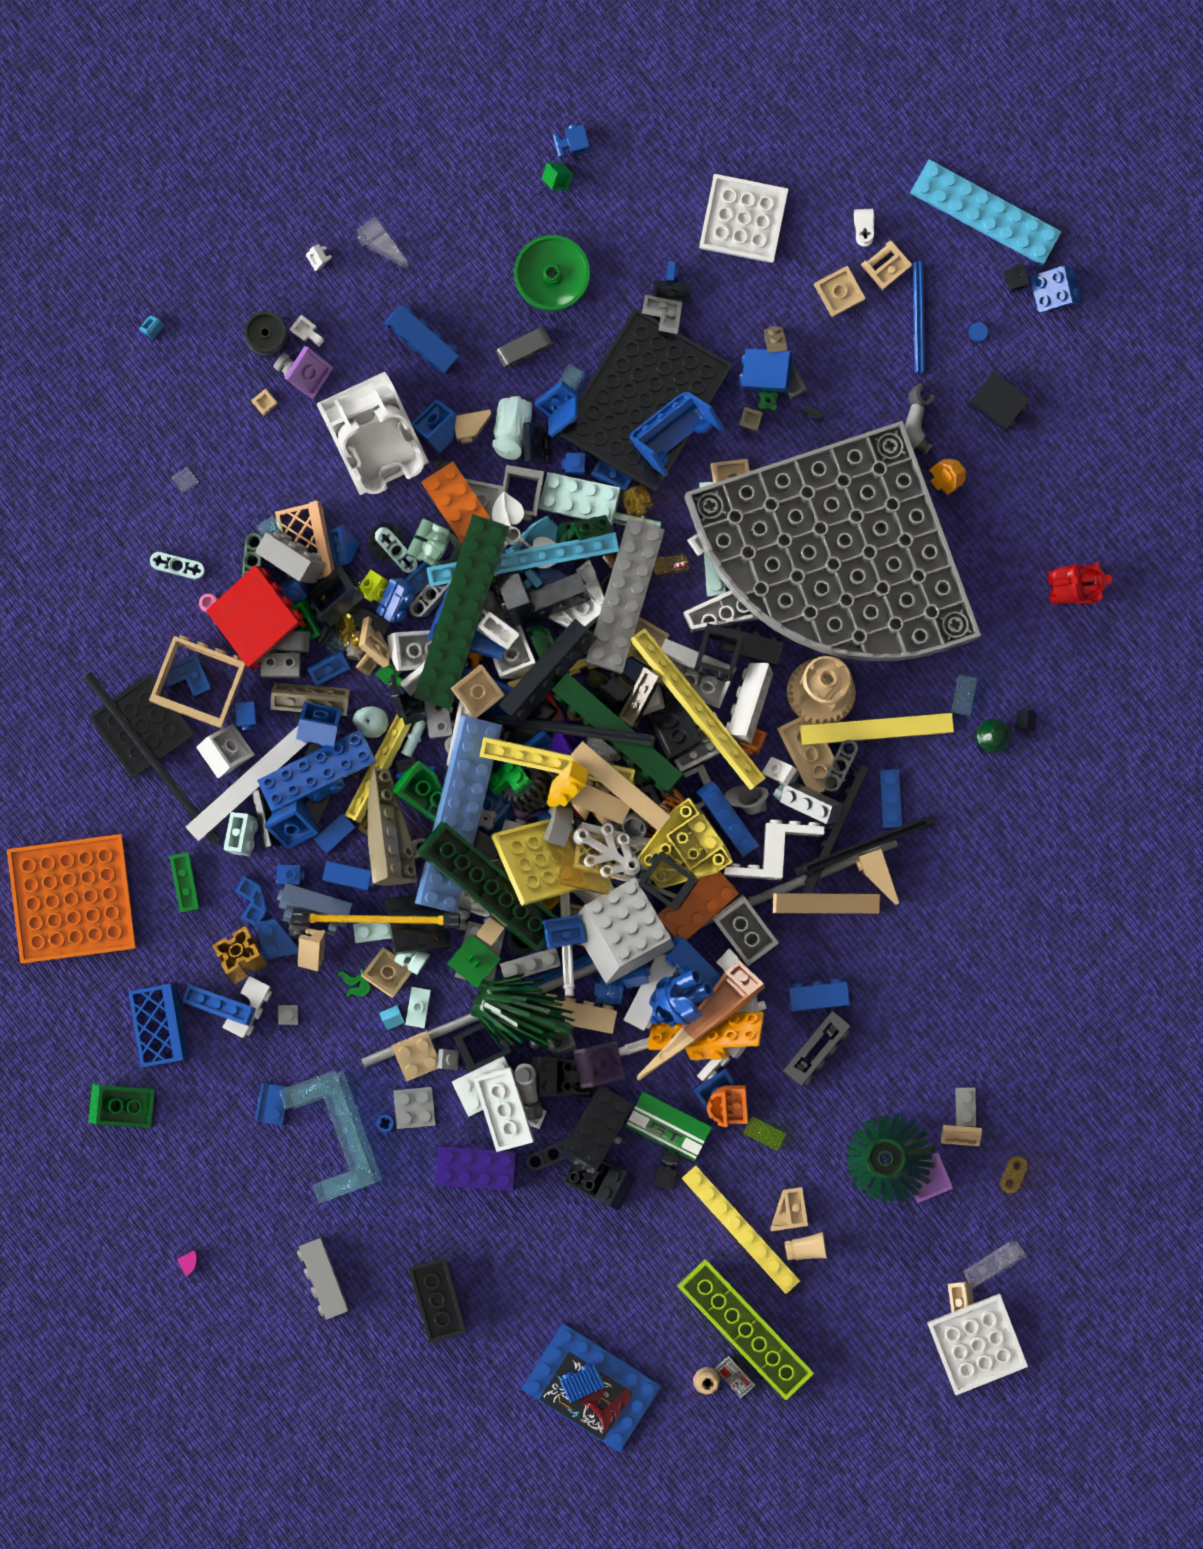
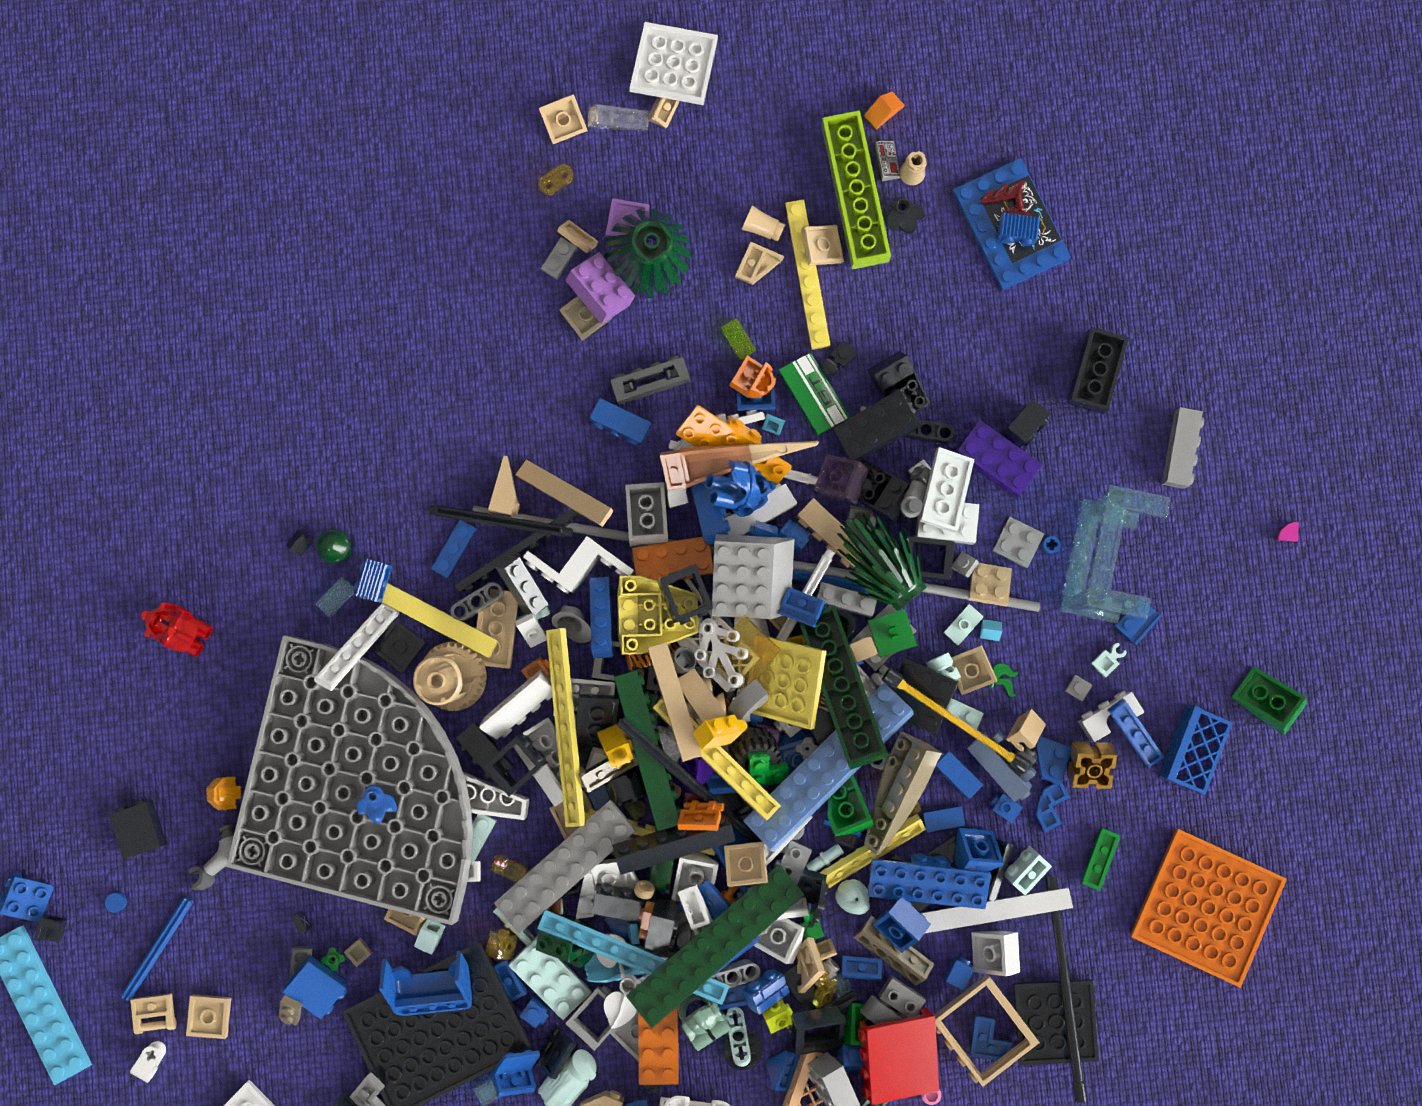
camera: 140 degrees left, 0 degrees up
(277, 1051) = (1106, 661): none -> light aqua plate
(470, 1212) = (1026, 423): none -> black brick
(534, 598) = (644, 916): none -> dark orange plate
(539, 706) = (700, 816): none -> orange plate
(547, 618) = (644, 889): none -> tan tile
(645, 720) = (616, 745): none -> yellow brick
(686, 1333) = (907, 218): none -> black plate
(687, 1078) = (773, 424): none -> medium azure slope
(700, 469) = (429, 936): none -> light aqua brick
(743, 1262) = (822, 245): none -> tan plate
(766, 1421) = (883, 109): none -> orange slope
(809, 546) = (376, 806): none -> blue plate
(882, 687) = (399, 646): none -> black plate
(910, 1071) = (581, 318): none -> dark tan plate
(911, 1099) = (600, 288): none -> medium lavender brick
(914, 665) = (356, 646): none -> white tile
(939, 728) = (372, 580): none -> blue brick
(1042, 1232) = (563, 119): none -> tan slope

